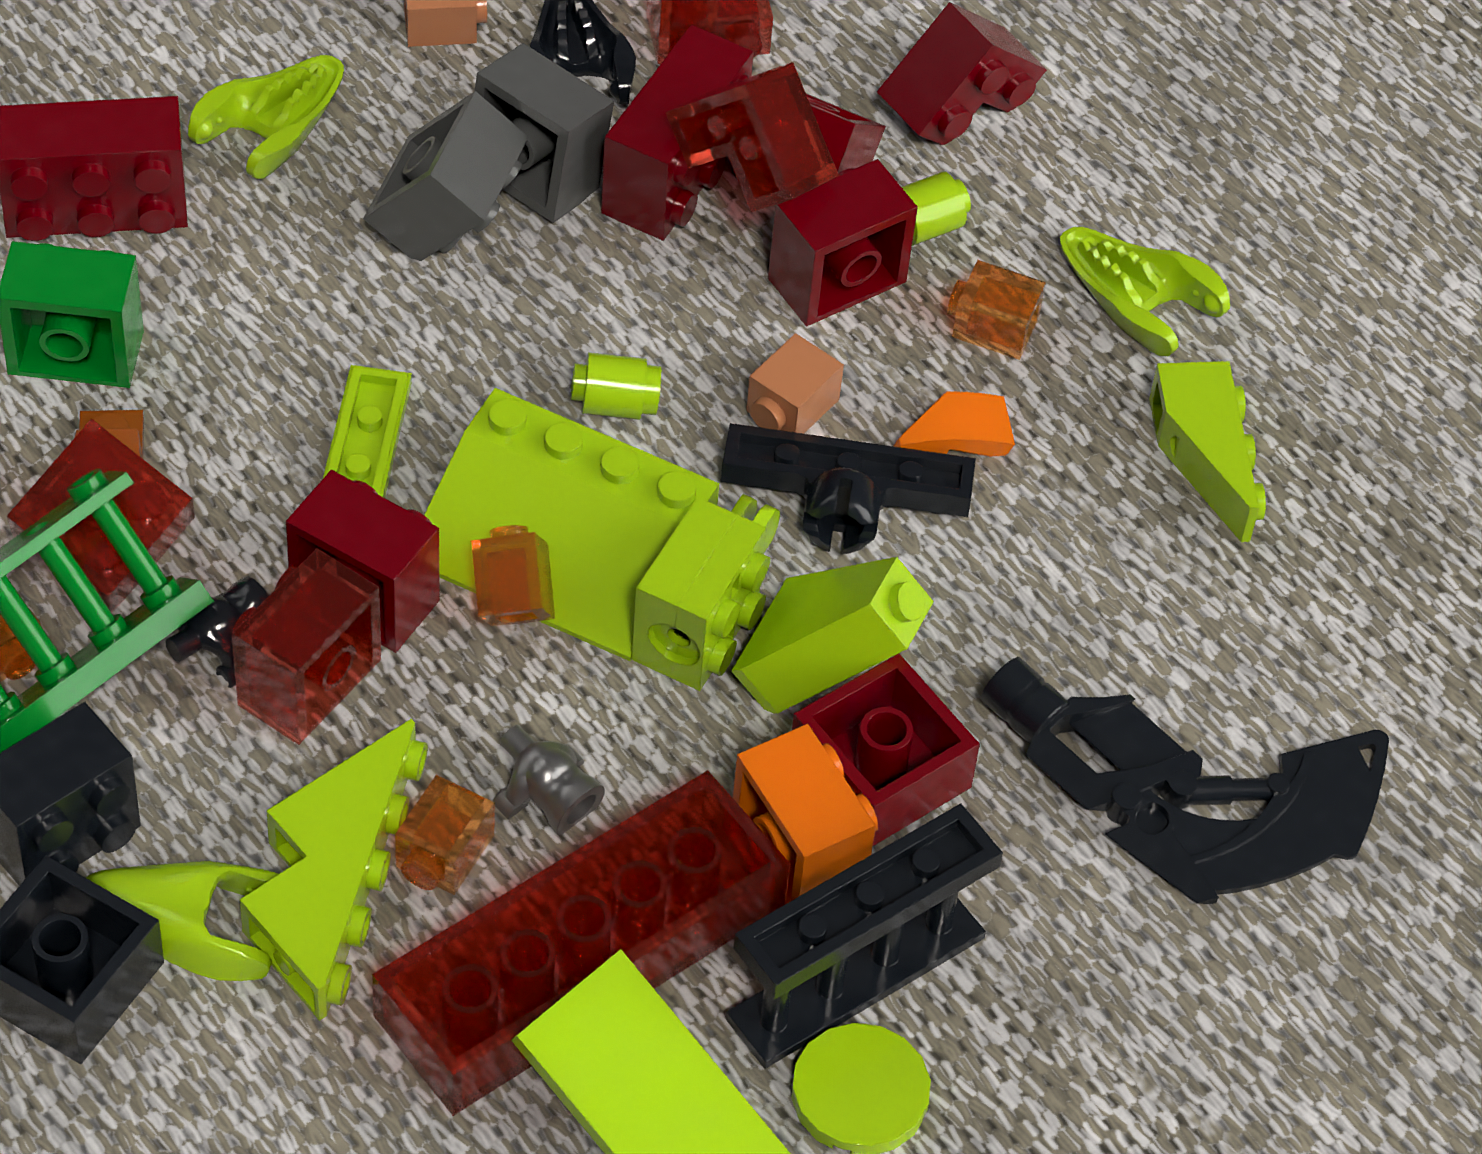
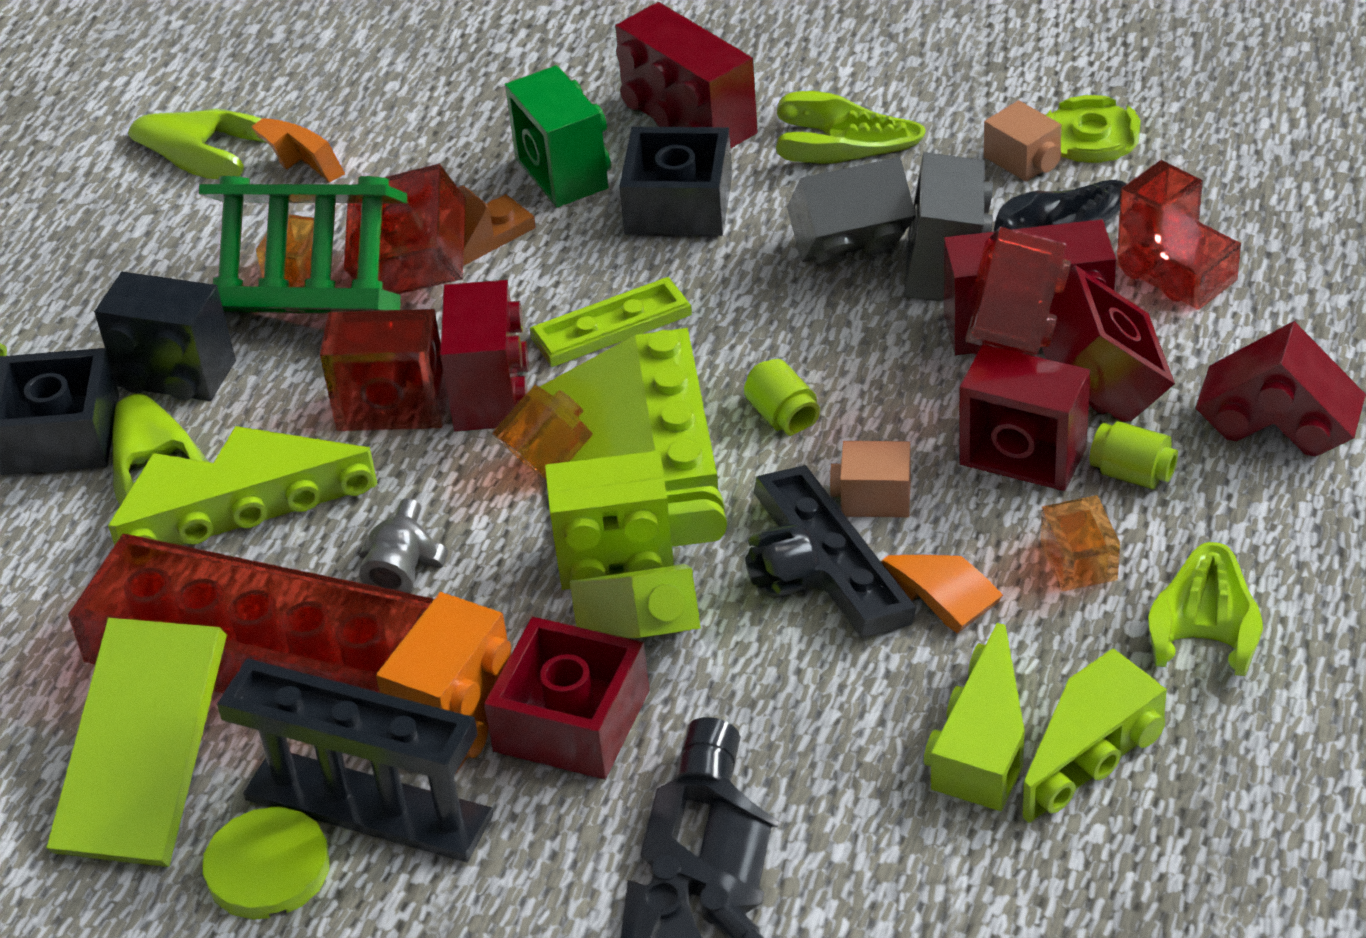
camera: 65 degrees right, 10 degrees down
(235, 270) = (676, 181): none -> black brick
(444, 836) = (300, 525): clear orange brick -> none
(1156, 502) = (983, 738): none -> lime slope

